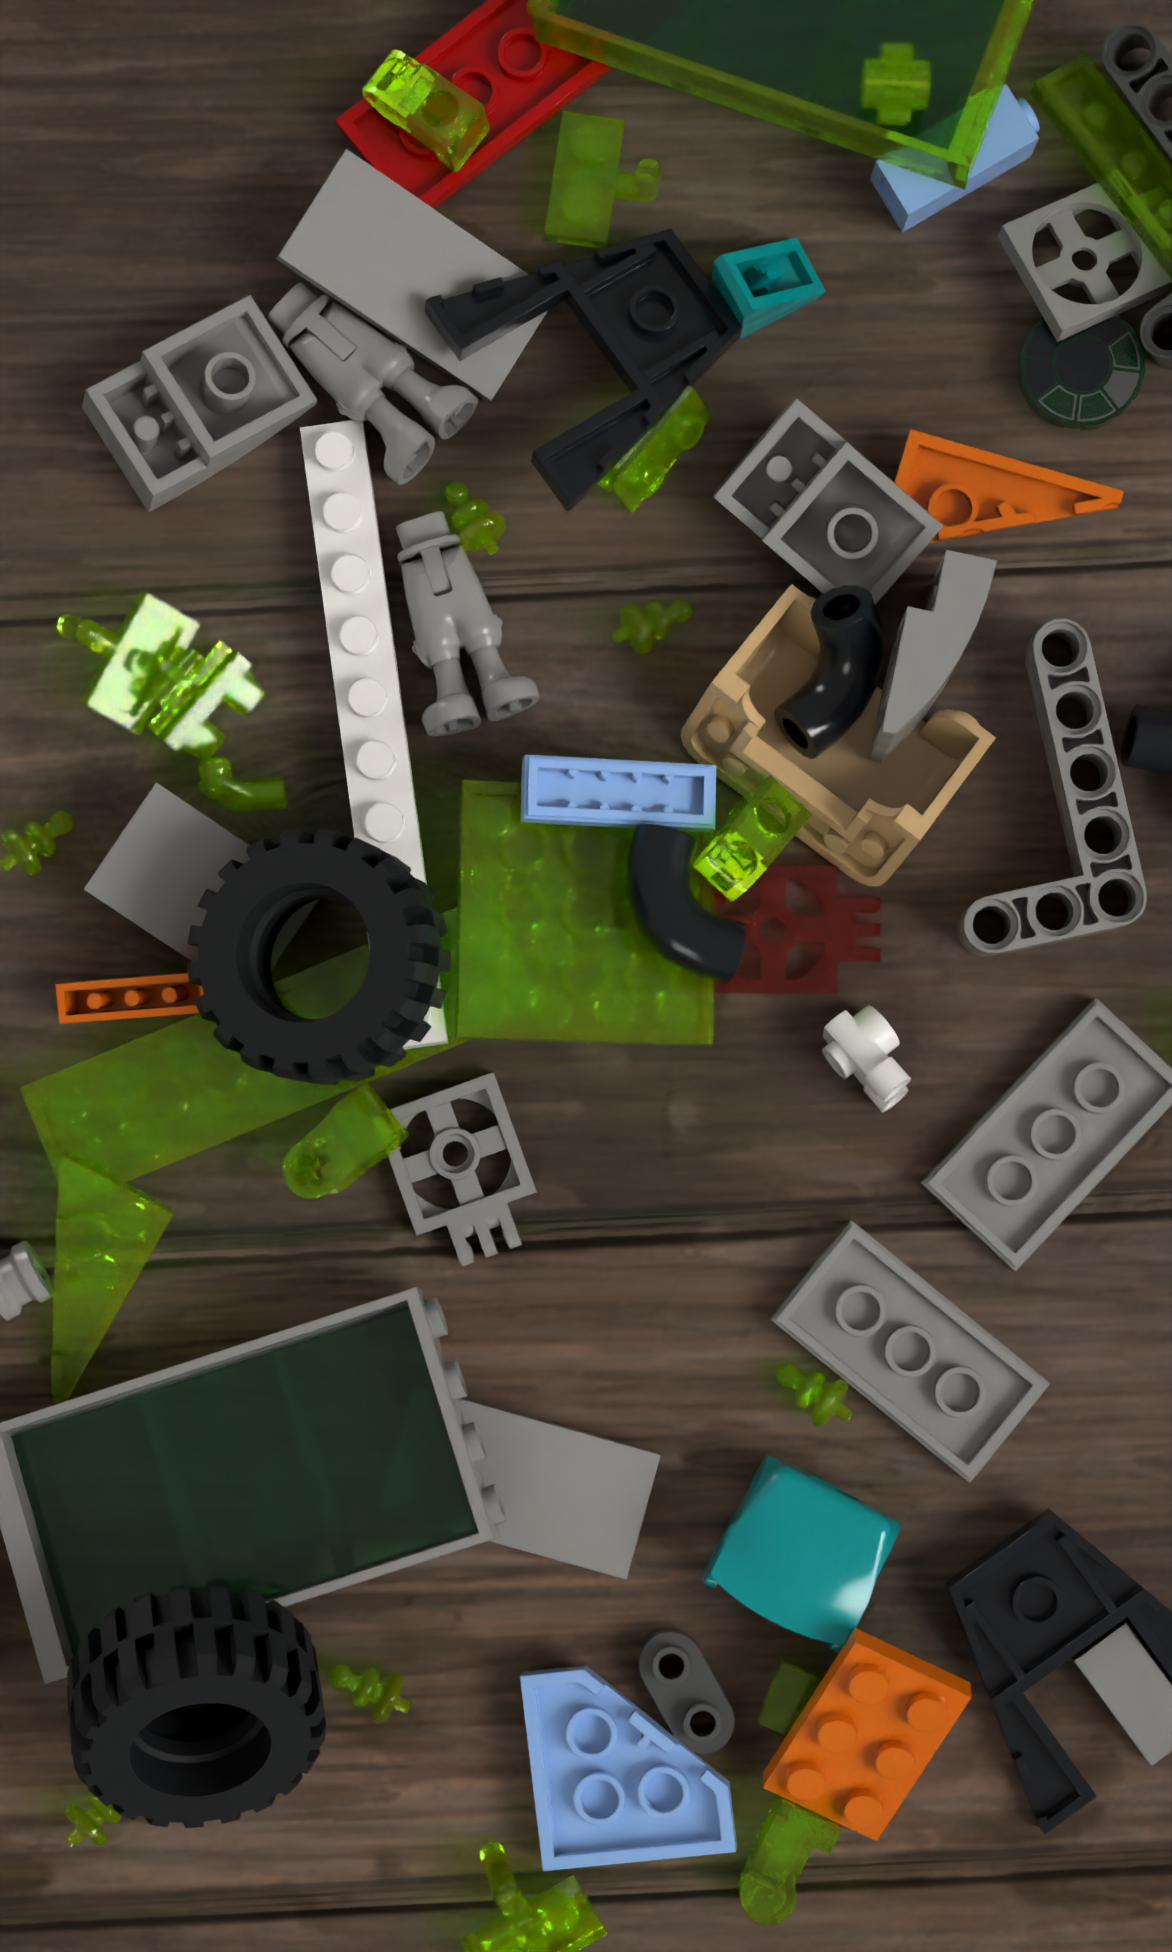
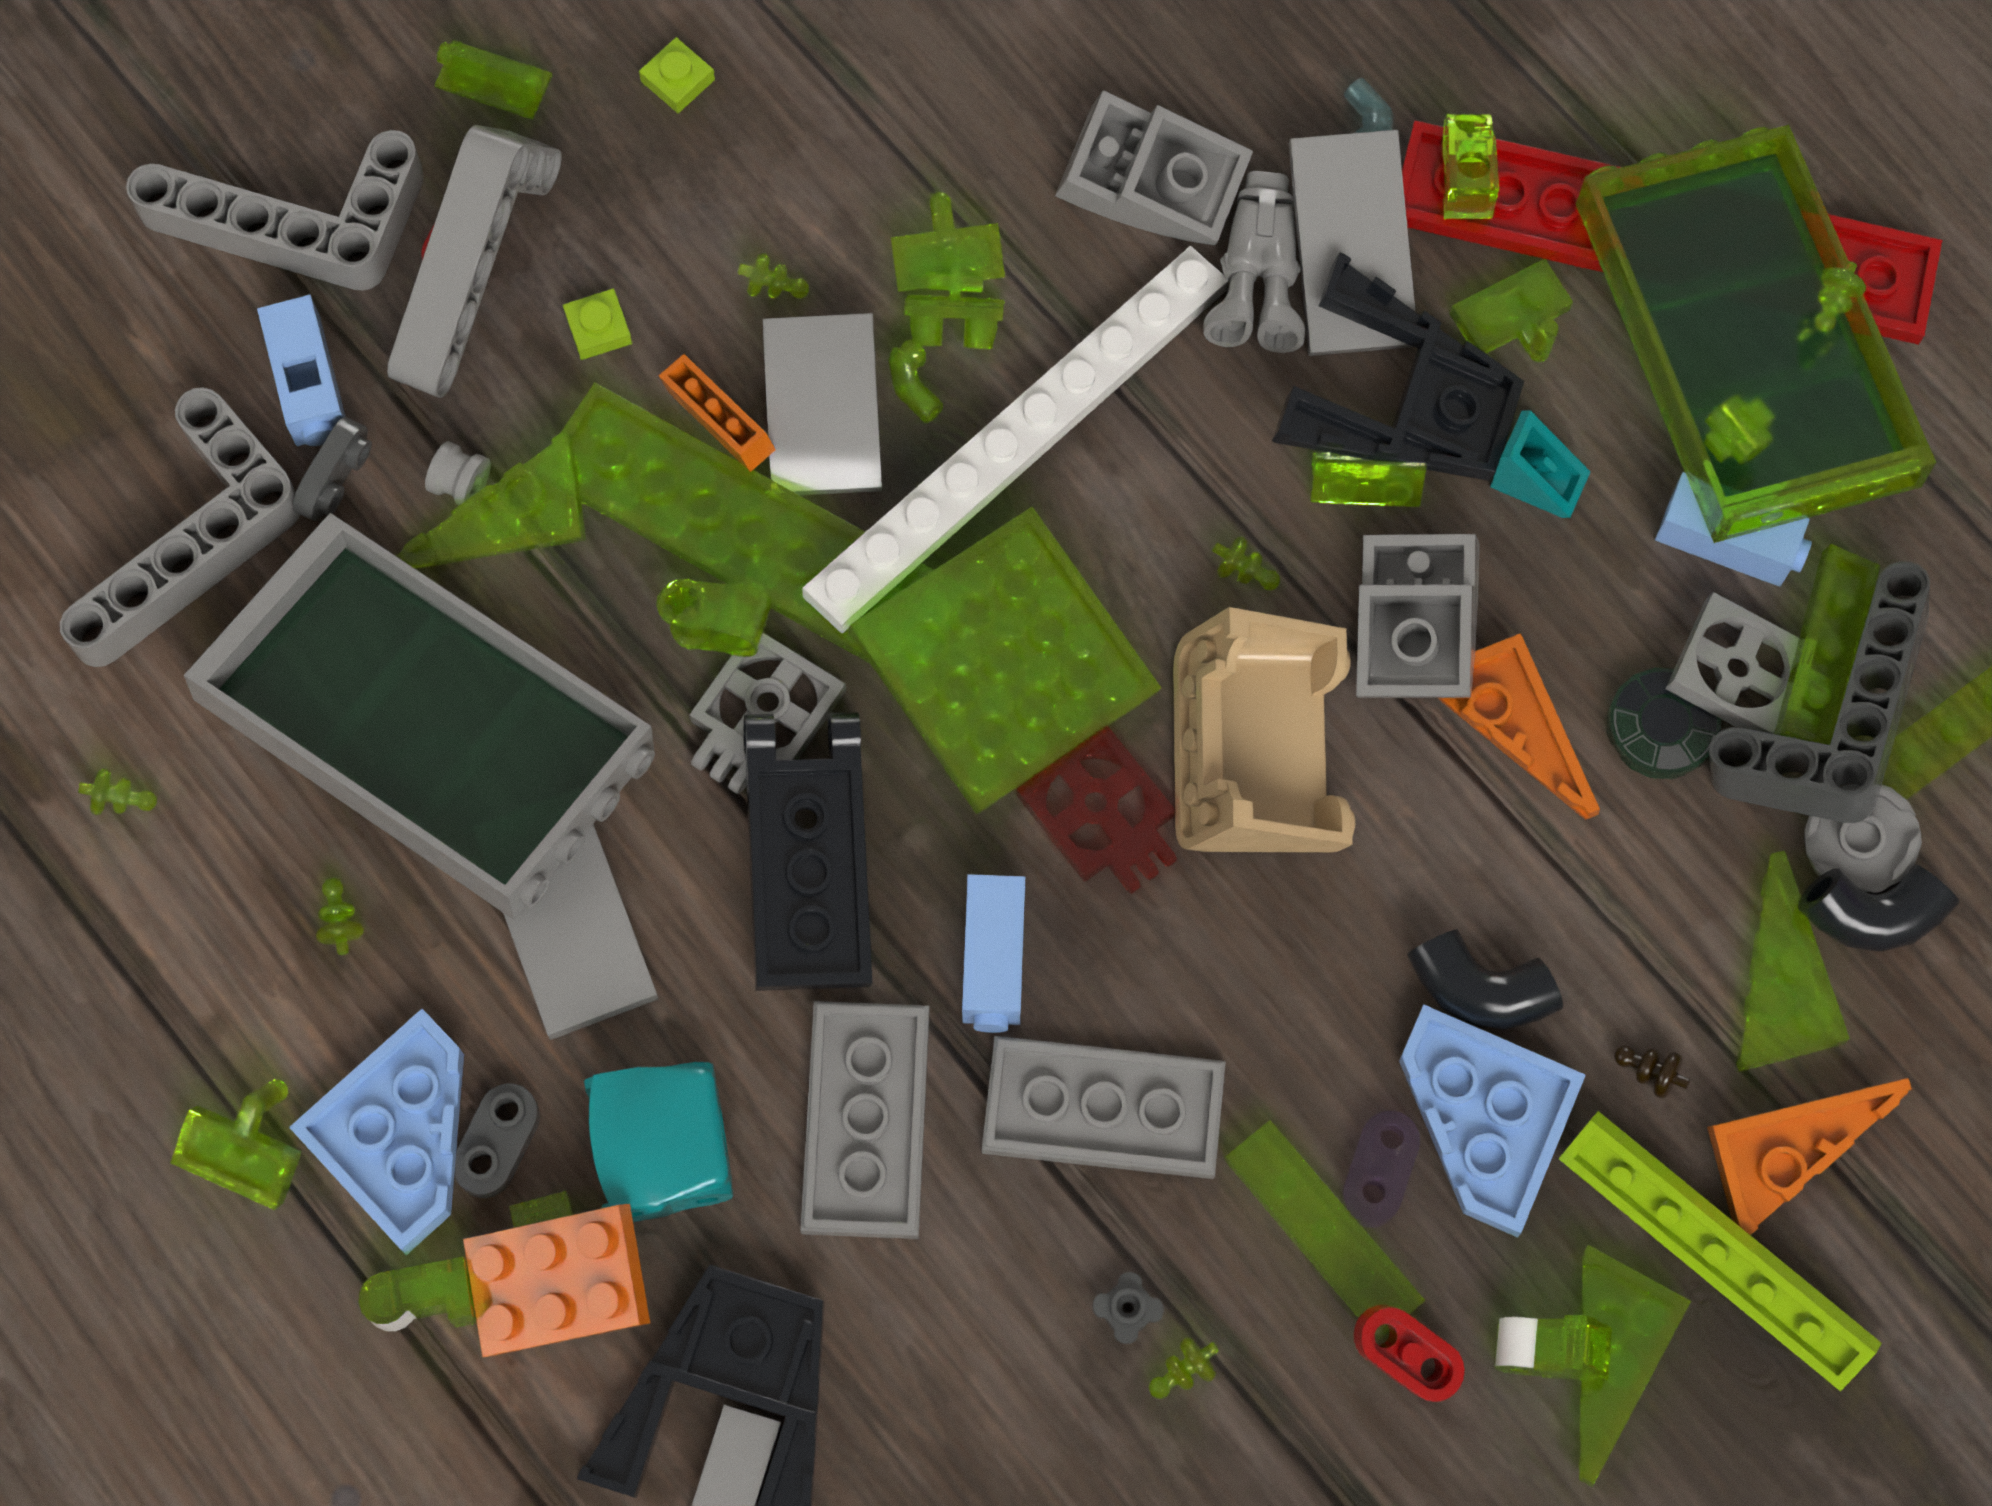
camera: 50 degrees right, 15 degrees down
(184, 1652) = (188, 805): black tyre -> none
(239, 943) = (818, 431): black tyre -> none
(298, 149) = (1374, 110): none -> clear light blue arm
(452, 614) = (1139, 428): light grey piece -> none
(478, 526) = (1218, 403): clear neon green hair -> none
(617, 793) = (1105, 614): light blue plate -> none
(656, 1246) = (810, 881): none -> black hinge
(670, 914) = (1049, 702): black cylinder -> none
(750, 838) = (1145, 728): clear neon green leg -> none
(811, 1390) = (783, 1074): clear neon green hair -> none
(844, 674) = (1312, 711): black cylinder -> none
(849, 1128) = (993, 952): none -> light blue brick
(861, 1048) = (1059, 921): white plate -> none
(930, 647) = (1373, 751): light grey slope -> none
(1075, 809) = (1349, 948): light grey beam -> none

